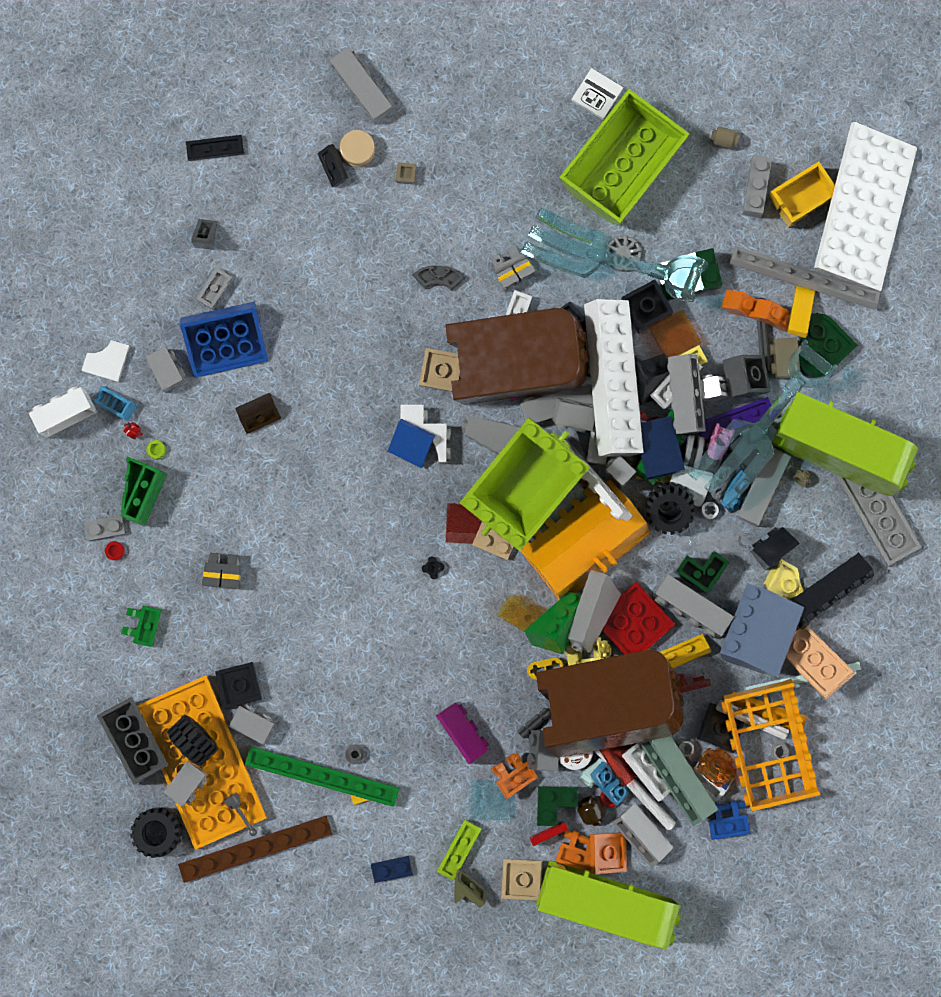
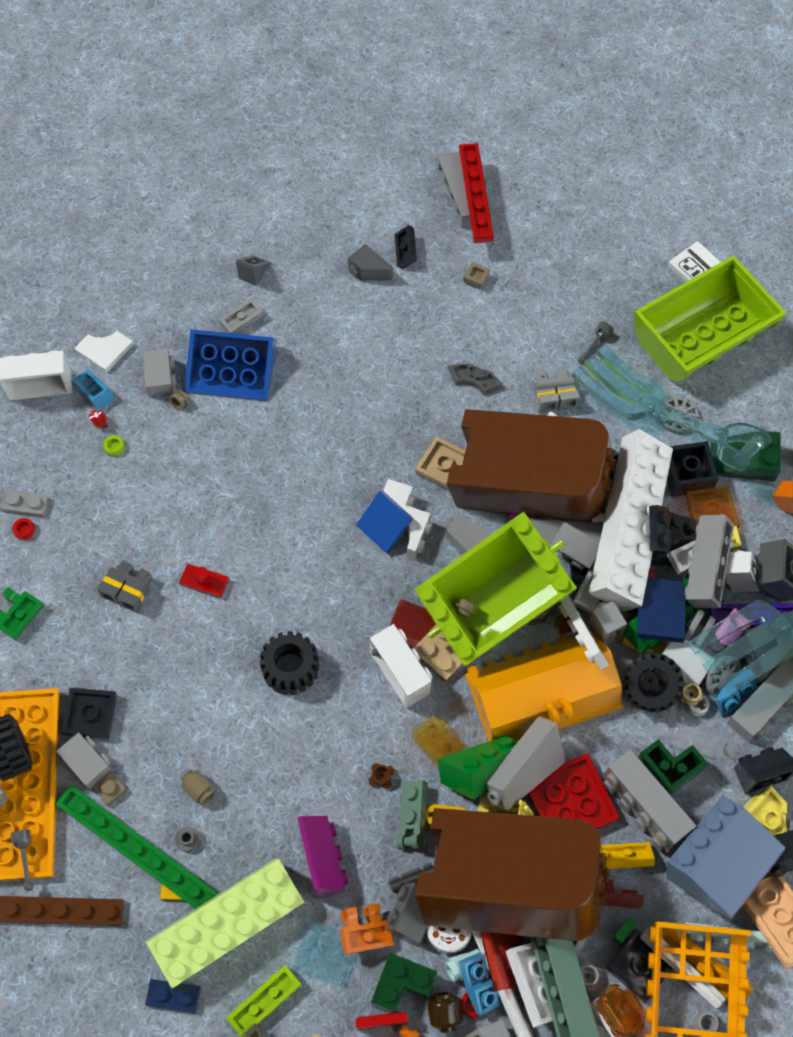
camera: 15 degrees right, 20 degrees down
(141, 490) = (78, 476): green wedge -> none
(193, 388) = (178, 397): none -> dark tan plate
(214, 147) = (296, 200): black tile -> none
(258, 413) = (234, 445): dark brown panel -> none
(279, 737) = (109, 789): none -> dark tan plate
(282, 543) = (204, 580): none -> red tile
(307, 197) = (369, 265): none -> dark grey slope
(347, 713) = (197, 787): none -> dark tan brick
(357, 148) = (436, 240): tan head -> none
(367, 579) = (289, 680): none -> black tyre
(377, 90) = (476, 193): none -> red tile
(410, 807) = (224, 922): none -> yellowish green brick
(432, 562) = (356, 655): black plate -> none
(469, 564) = (400, 665): none -> white piece
(480, 658) = (378, 769): none -> reddish brown plate
(504, 498) = (466, 607): none -> dark tan plate
(518, 676) = (412, 815): none -> sand green plate
(534, 193) = (602, 332): none -> dark grey hinge
(639, 382) = (659, 529): none -> black plate
(703, 707) = (624, 931): none -> green tile
(707, 506) = (695, 690): none -> tan plate

